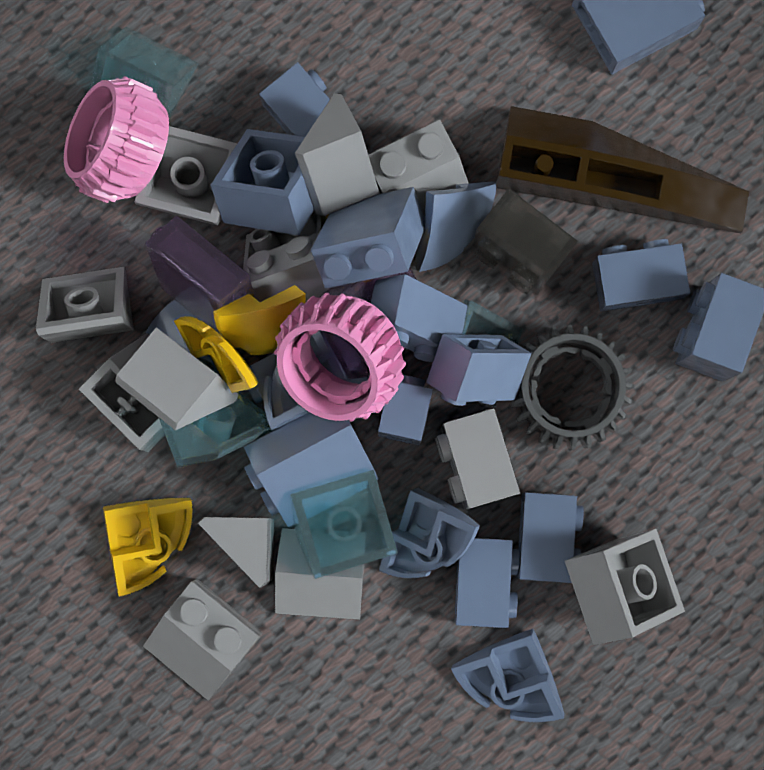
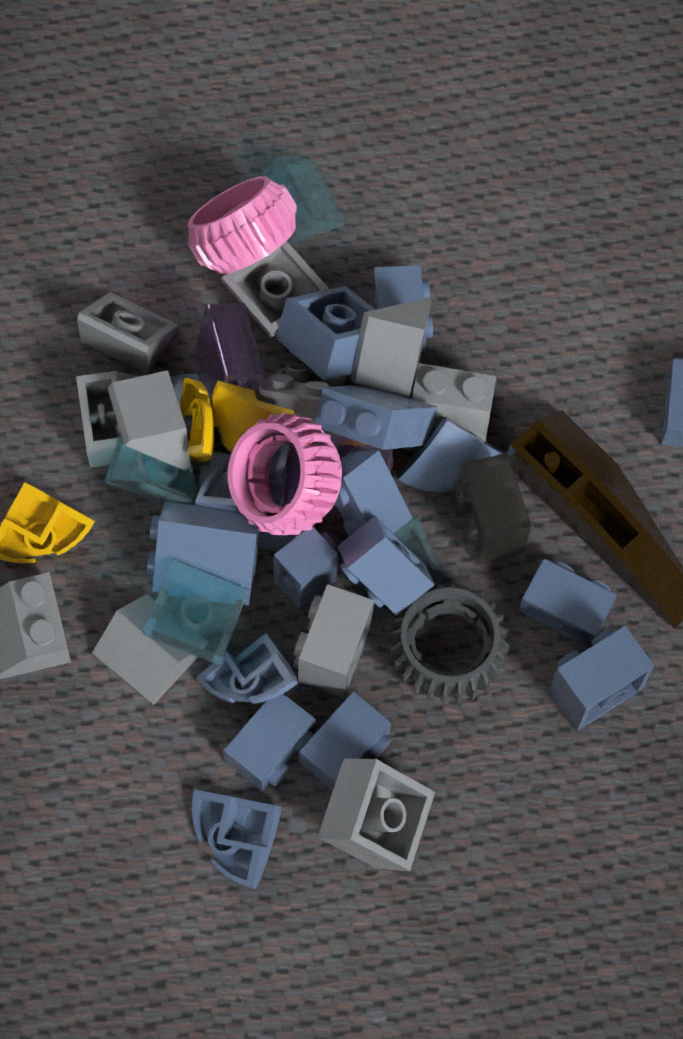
camera: 30 degrees right, 15 degrees down
(246, 542) = (117, 573): light grey slope -> none

